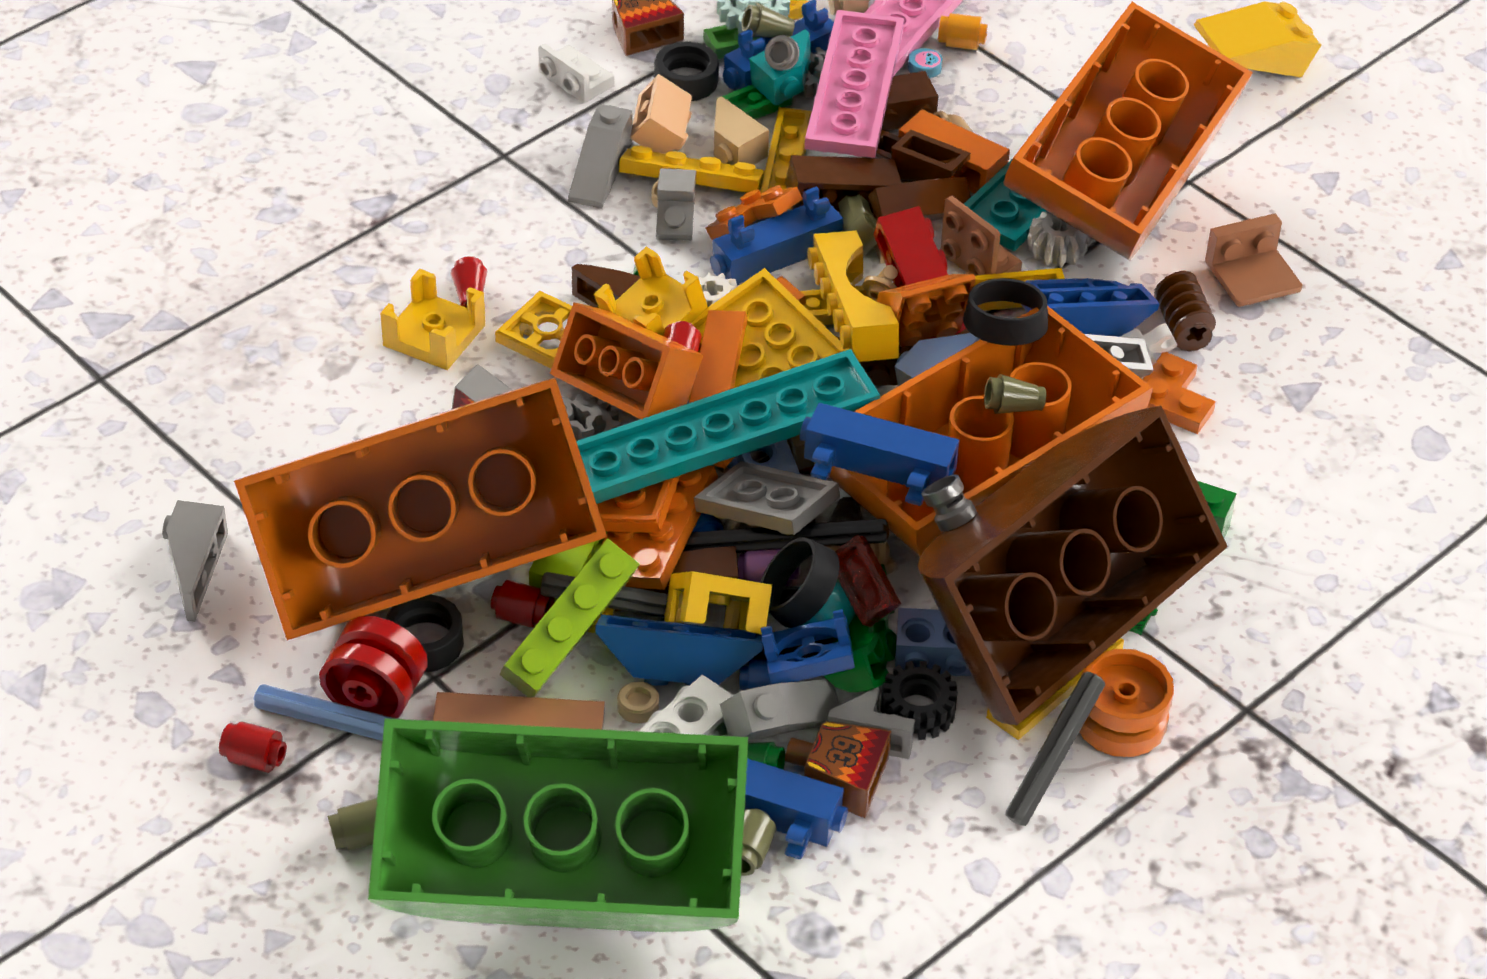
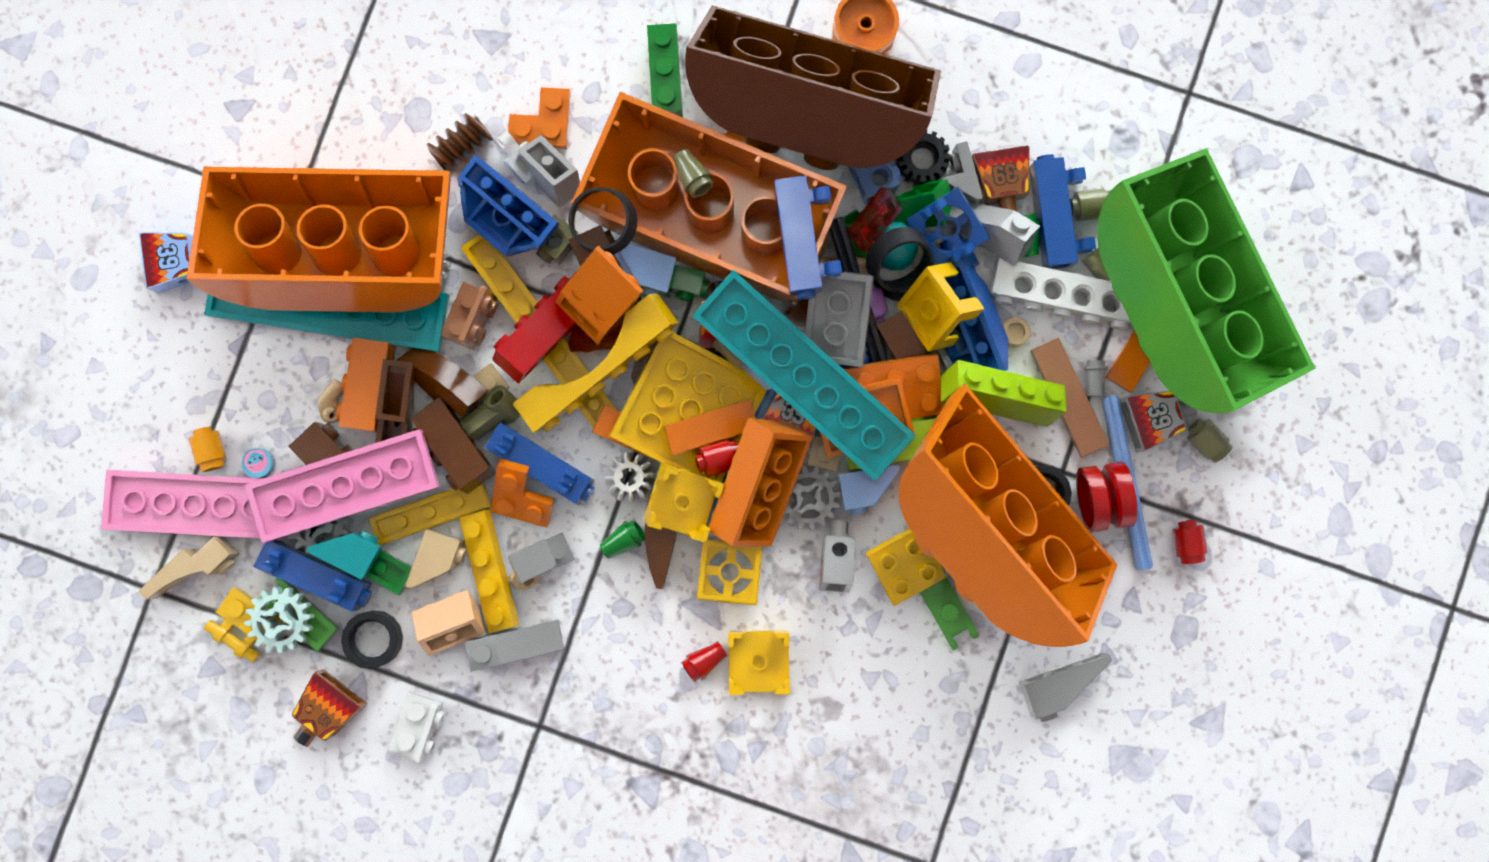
camera: 115 degrees left, 40 degrees up
(766, 22) = (308, 592): olive cone -> none
(782, 53) = (355, 550): light grey plate -> none
(879, 283) = (562, 357): tan plate -> none
(949, 503) = (823, 172): flat silver wheel -> none
(1055, 748) = (932, 47): dark grey axle -> none
(1248, 261) = (383, 114): nougat bracket -> none
(1262, 38) = (106, 209): yellow slope -> none

